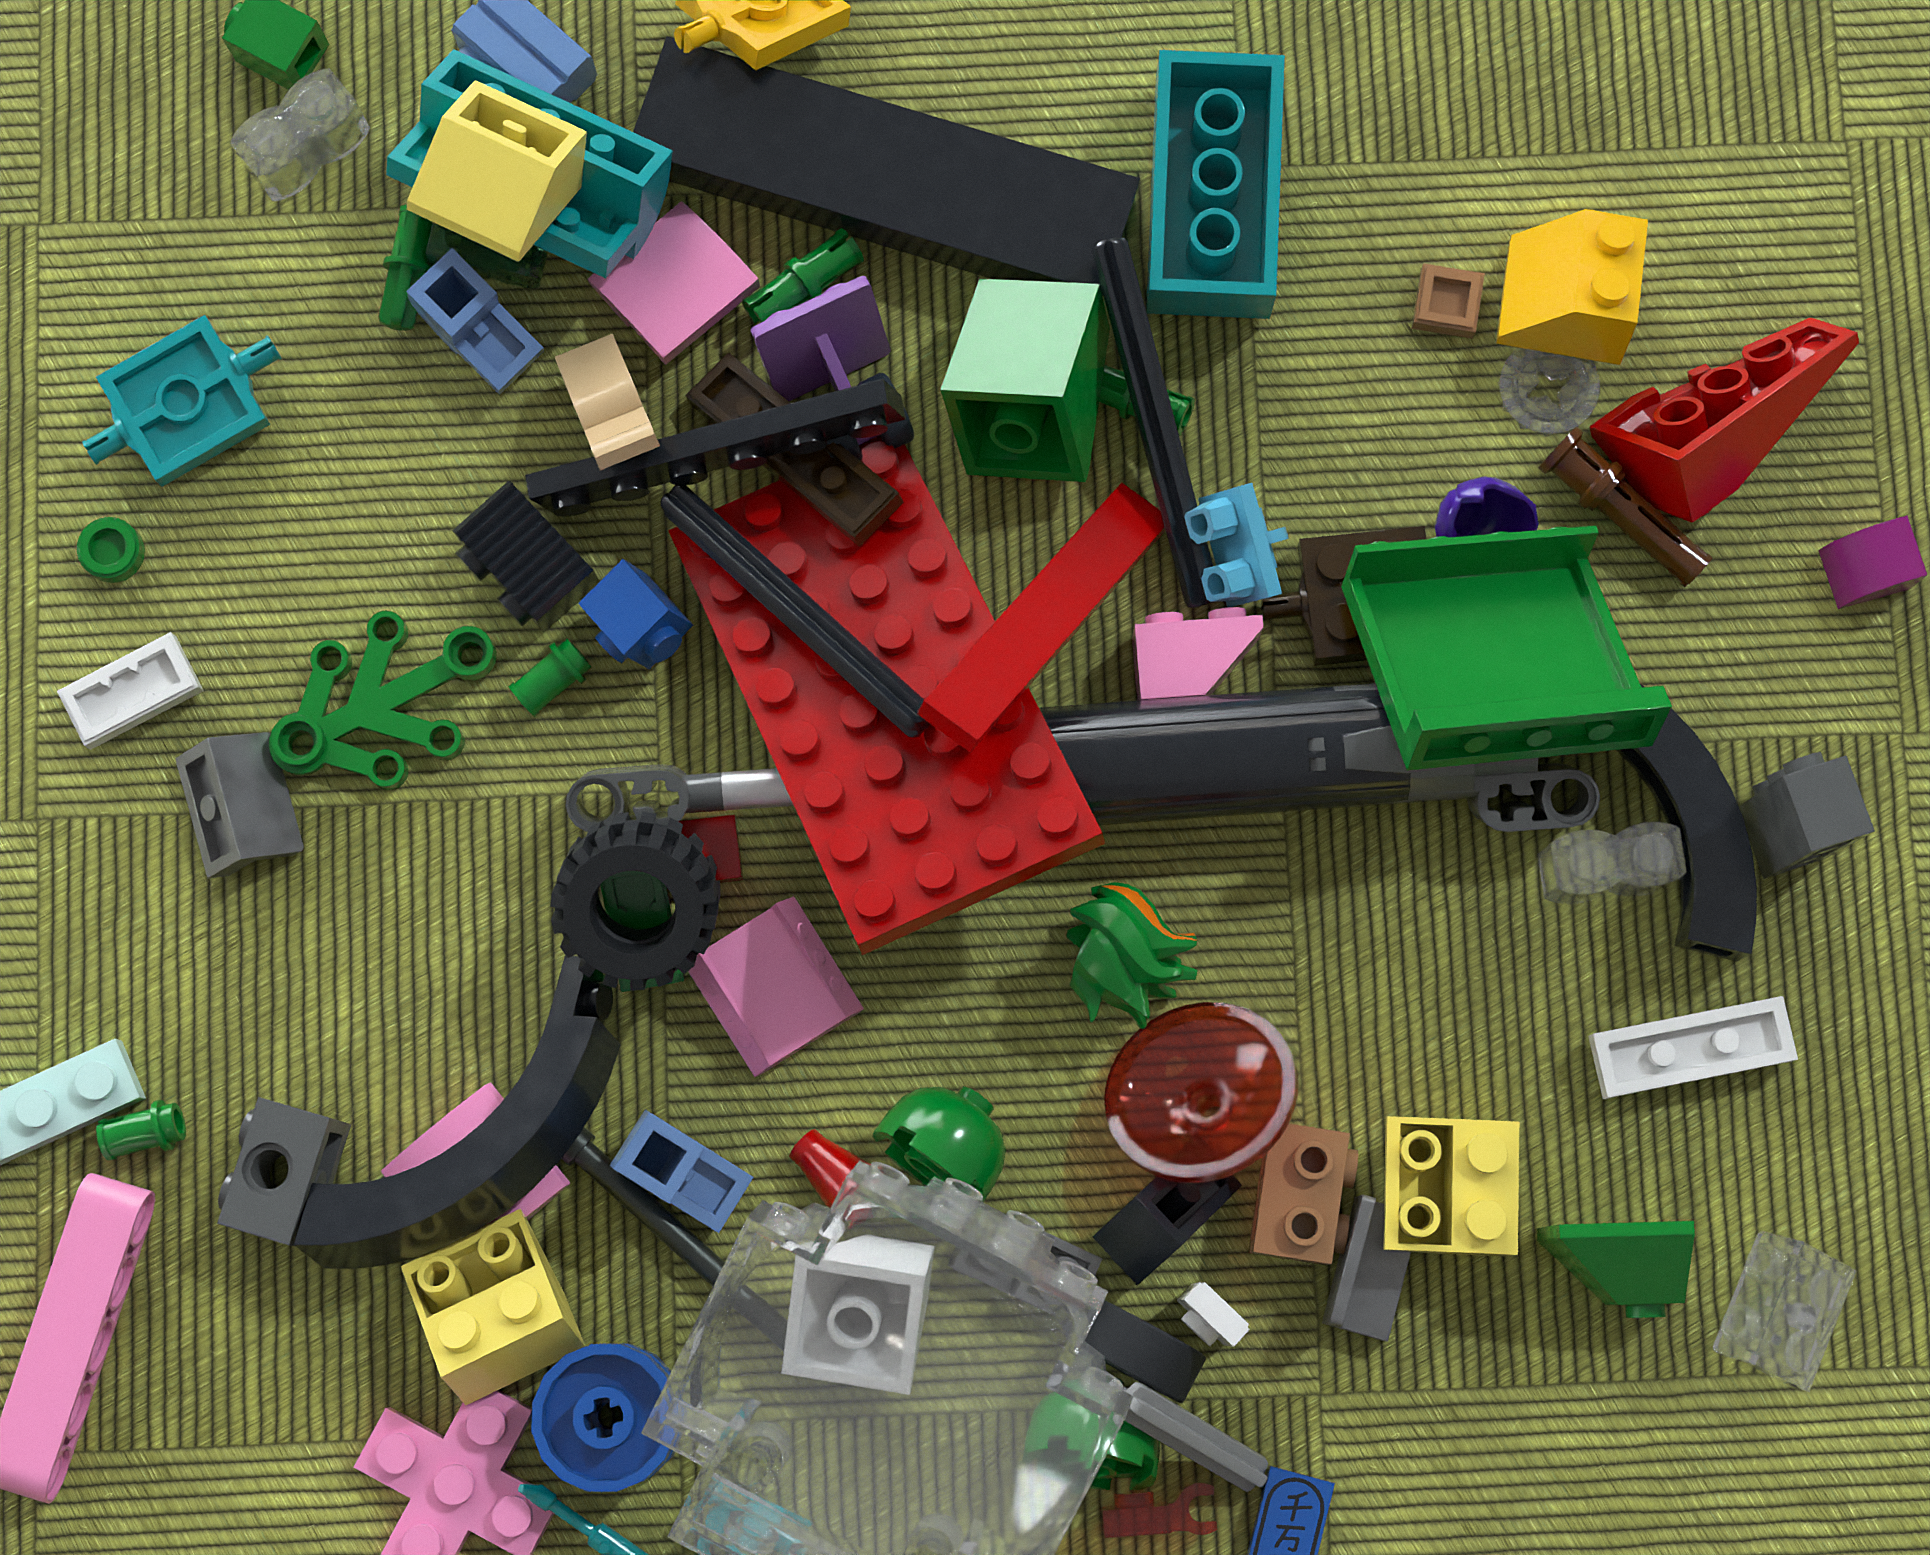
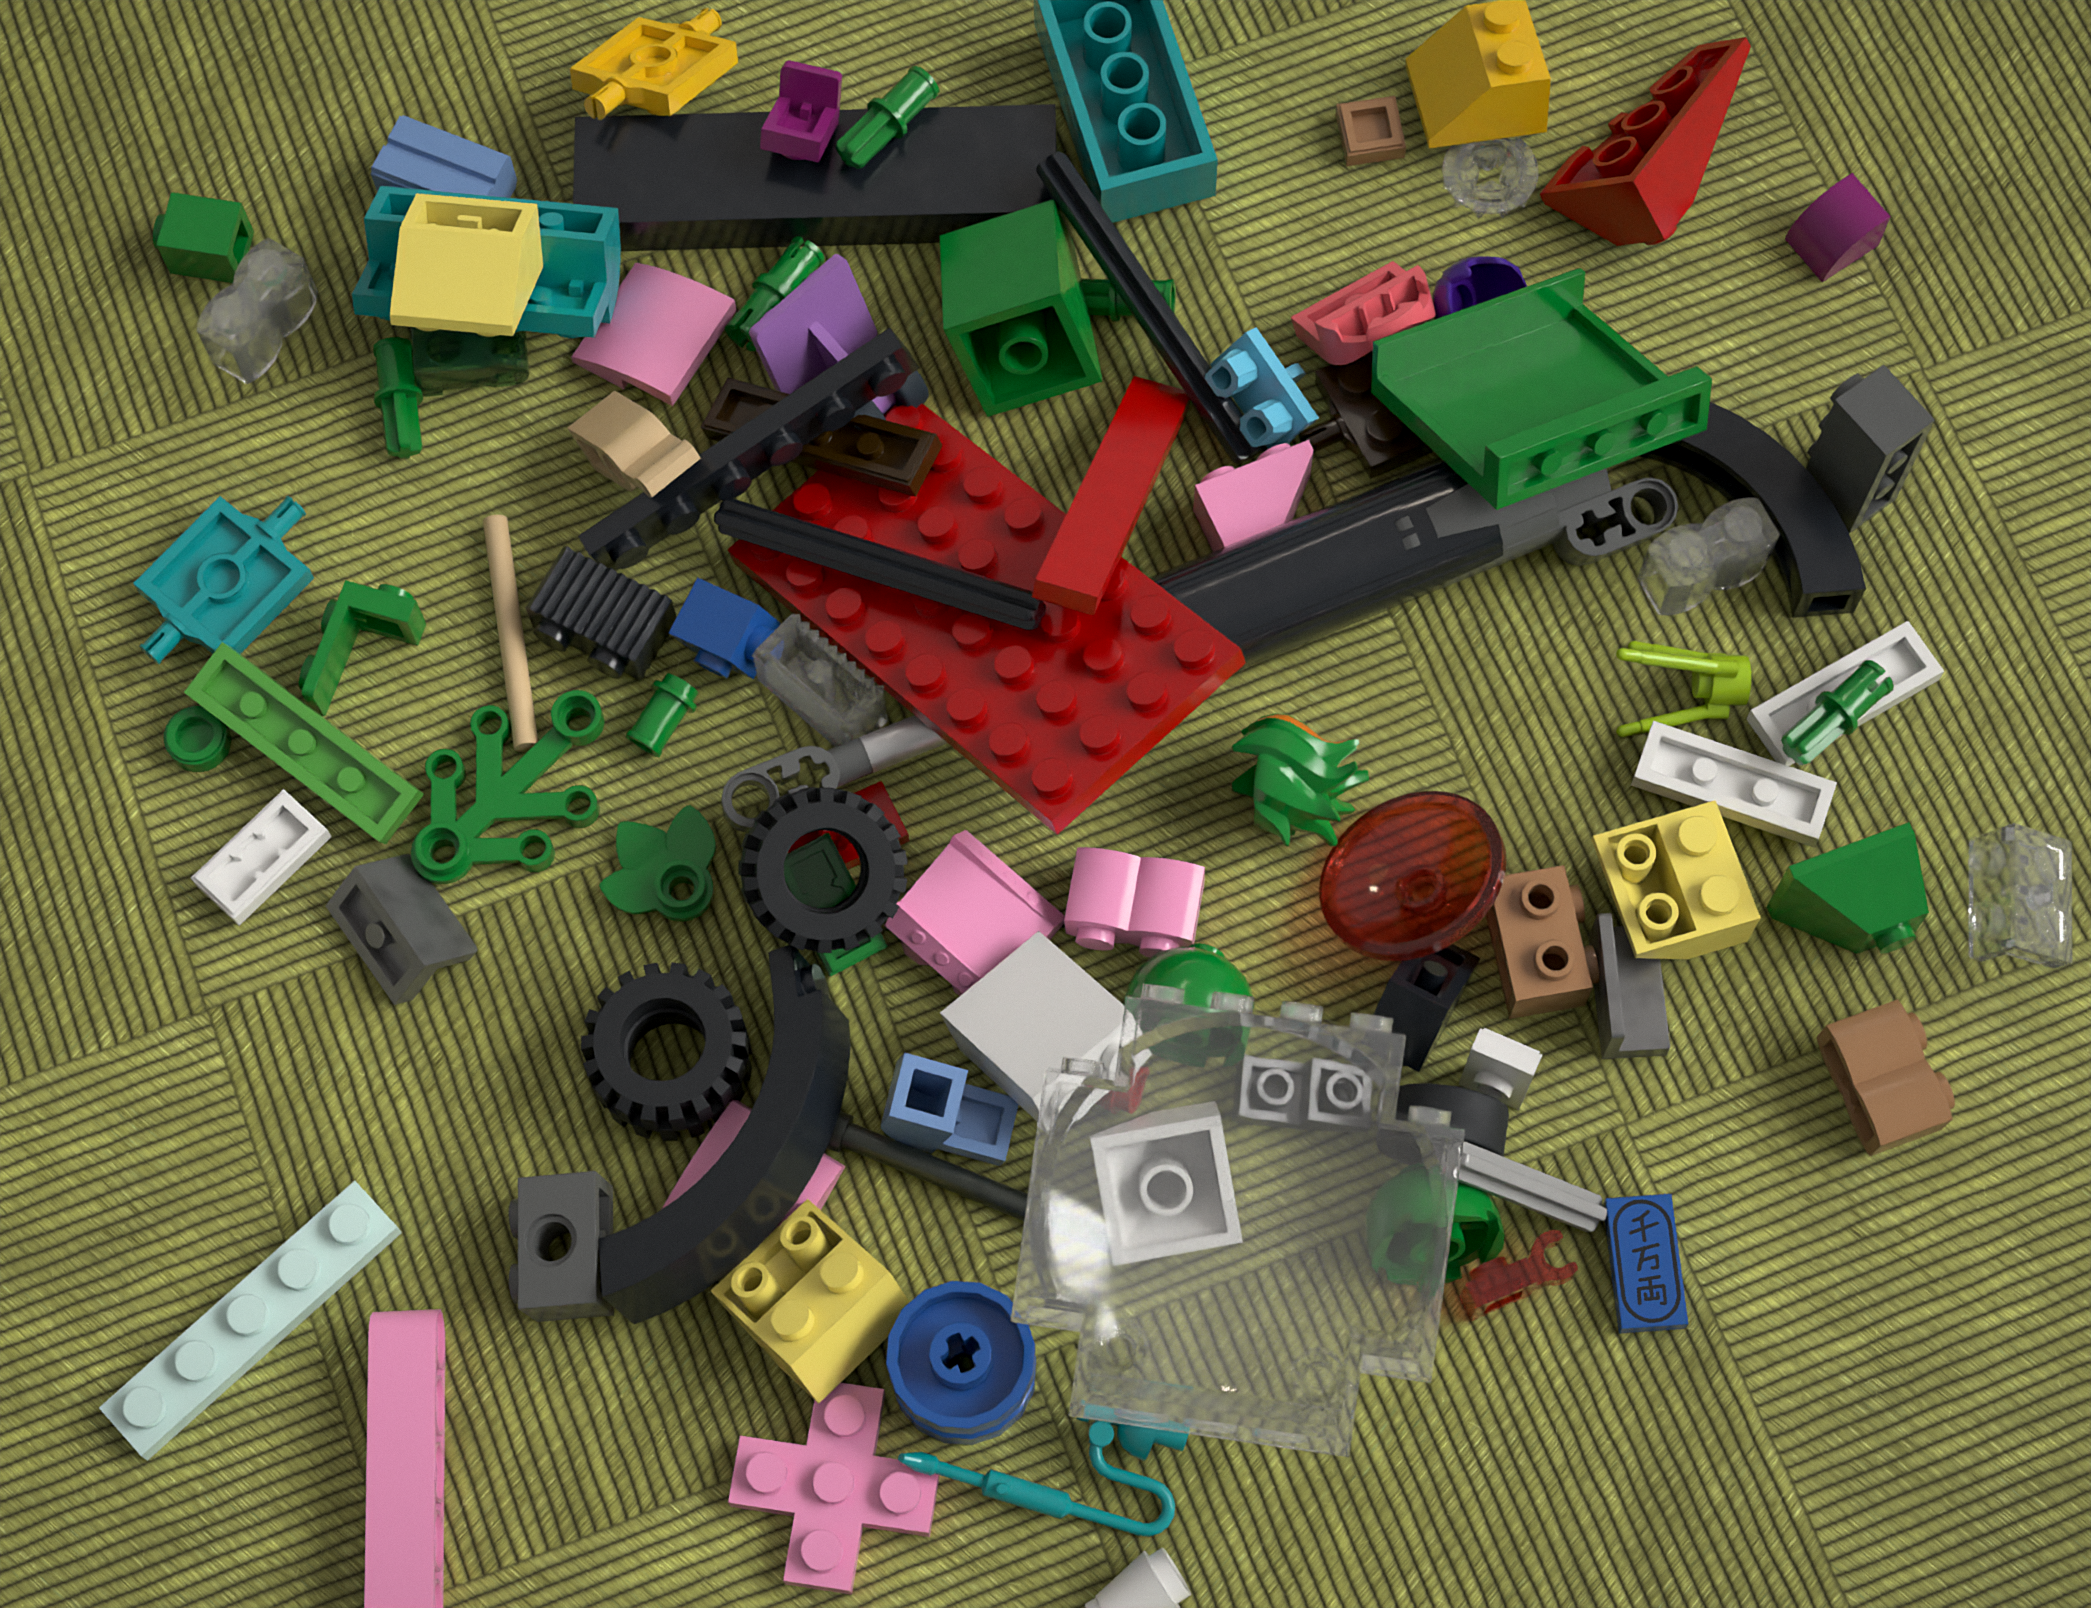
camera: 20 degrees left, 10 degrees down
(142, 1130) = (410, 1258): green pin -> none
(203, 592) = (304, 743): none -> bright green plate
(276, 486) = (381, 611): none -> green bracket
(394, 988) = (654, 1002): none -> black tyre
(436, 542) = (510, 633): none -> tan bar
(473, 322) = (470, 420): medium blue brick -> none
(500, 820) = (660, 861): none -> green plate
(706, 703) = (819, 683): none -> clear brick
(792, 1119) = (1031, 1017): none -> white brick
(885, 112) = (804, 112): none -> magenta bracket
(929, 1019) = (1133, 901): none -> bright pink brick
(966, 142) = (887, 117): none -> green axle
(1369, 500) = (1367, 310): none -> coral slope
(1550, 1100) = (1741, 783): none -> white plate
(1571, 985) = (1715, 677): none -> lime plant
(1583, 1444) = (1885, 1077): none -> medium nougat brick
(1603, 487) = (1573, 241): reddish brown pin -> none
(1673, 1071) = (1836, 713): none -> green axle

